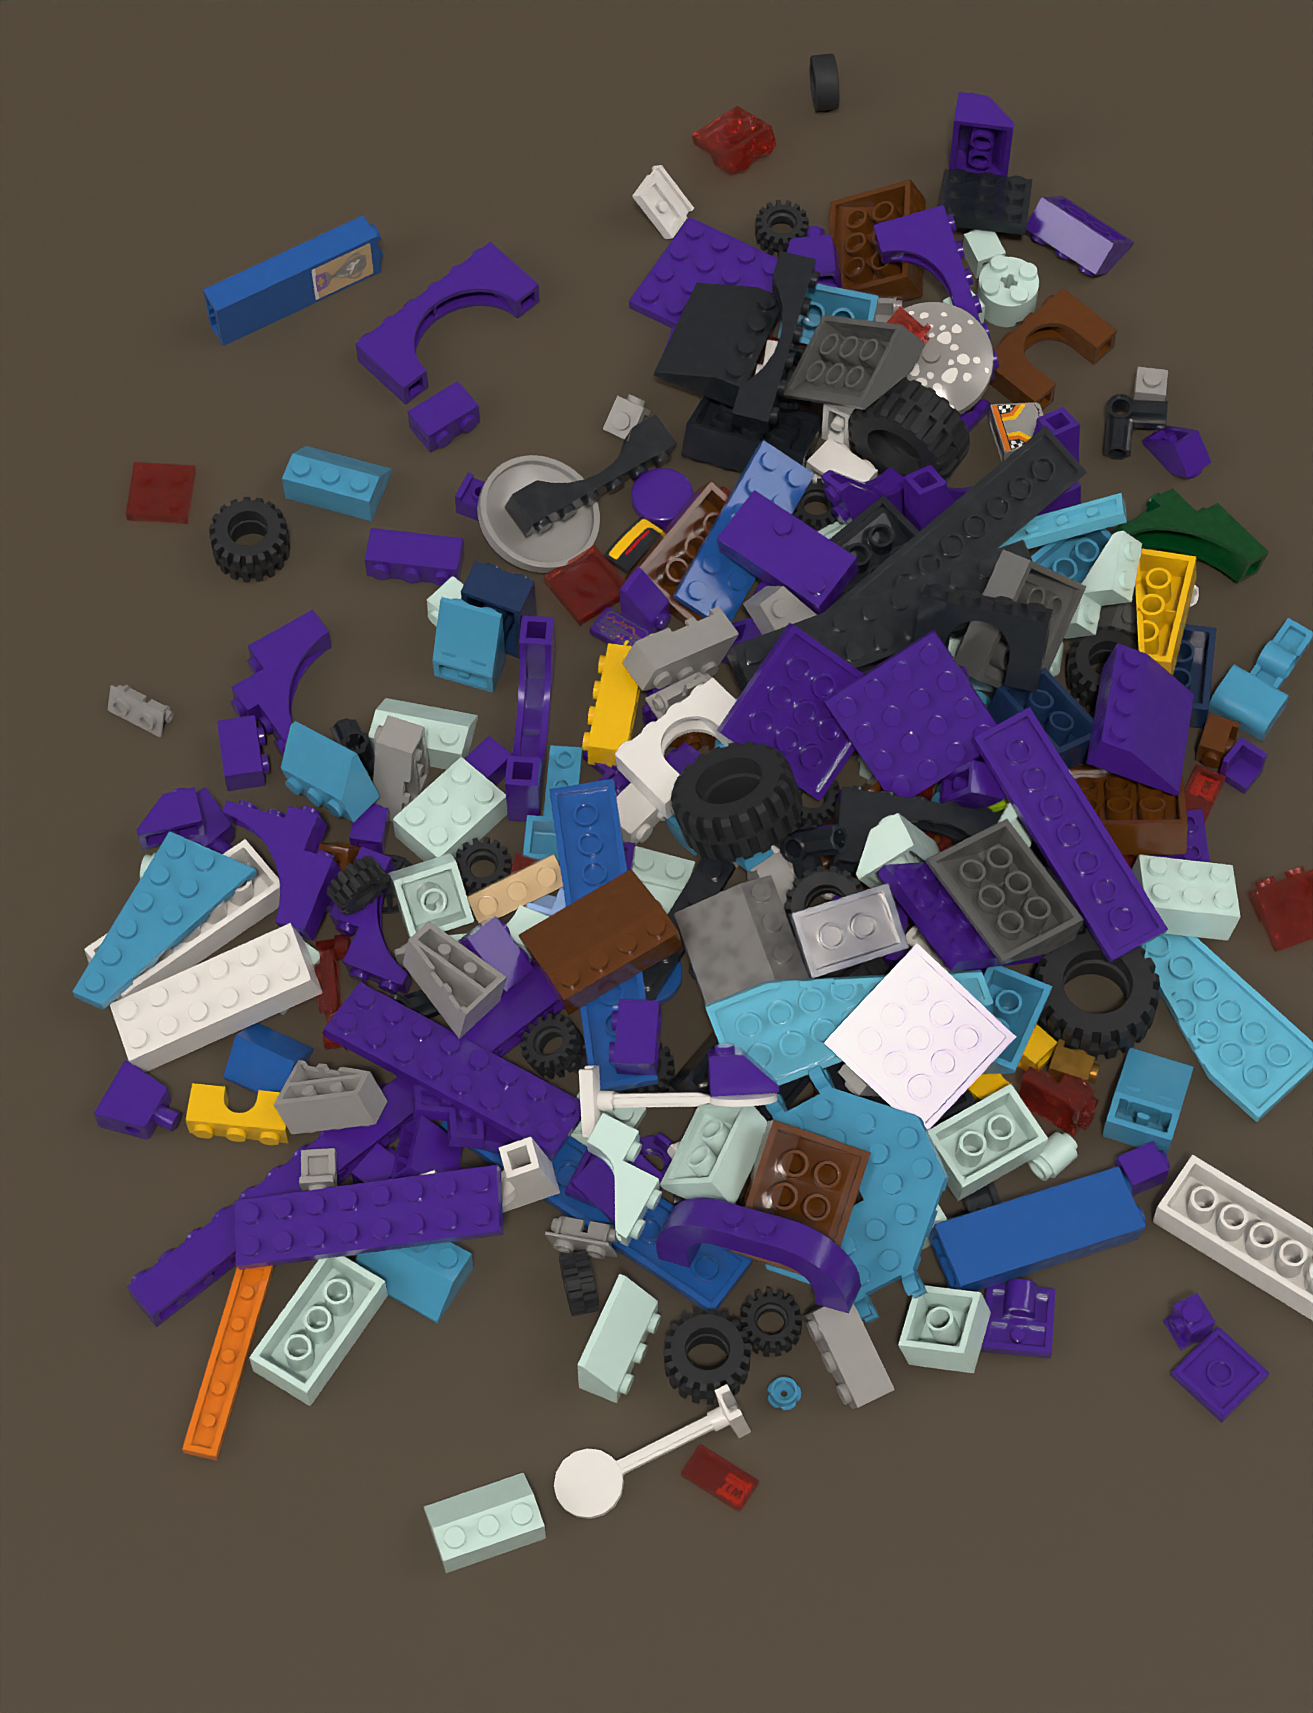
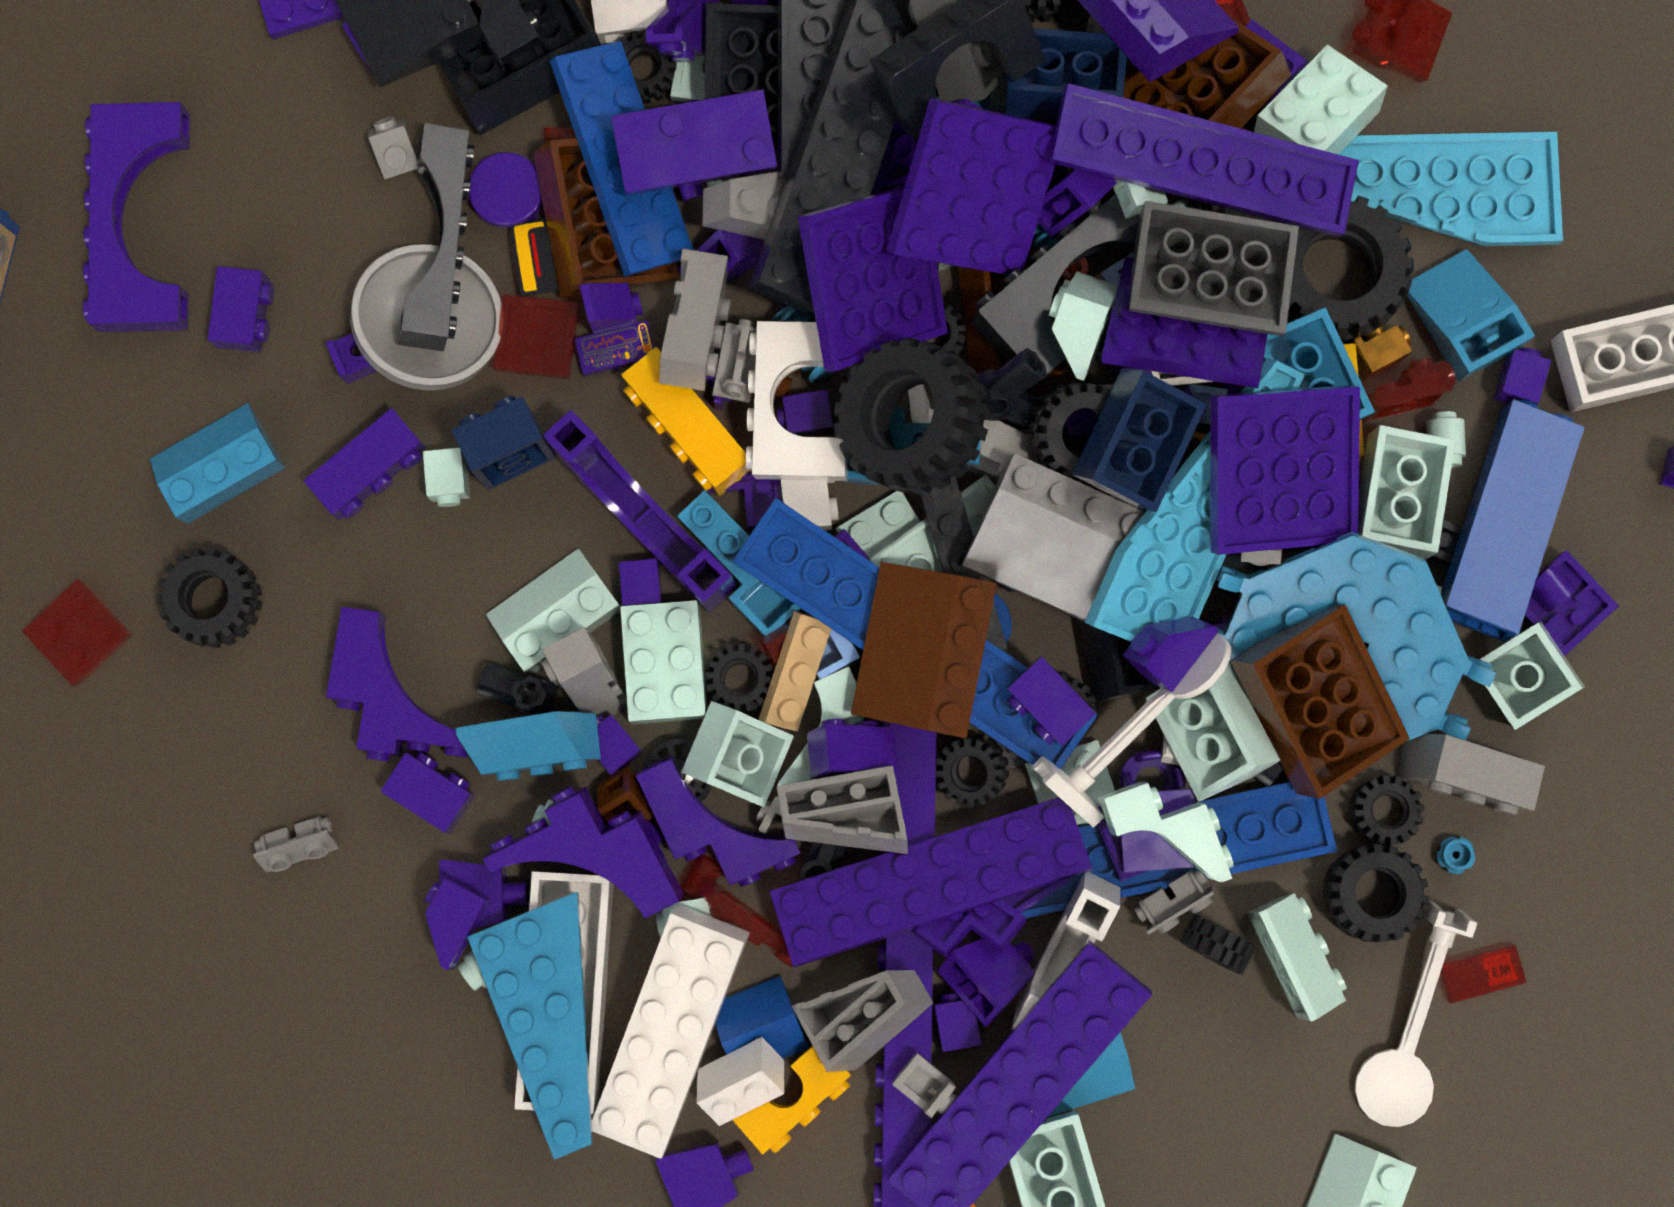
camera: 45 degrees left, 20 degrees up
(221, 1068) = (740, 1081): none -> white brick
(358, 885) = (682, 818): black tyre -> none
(469, 644) = (513, 501): dark azure slope -> none
(762, 1236) = (1401, 749): dark purple arch -> none

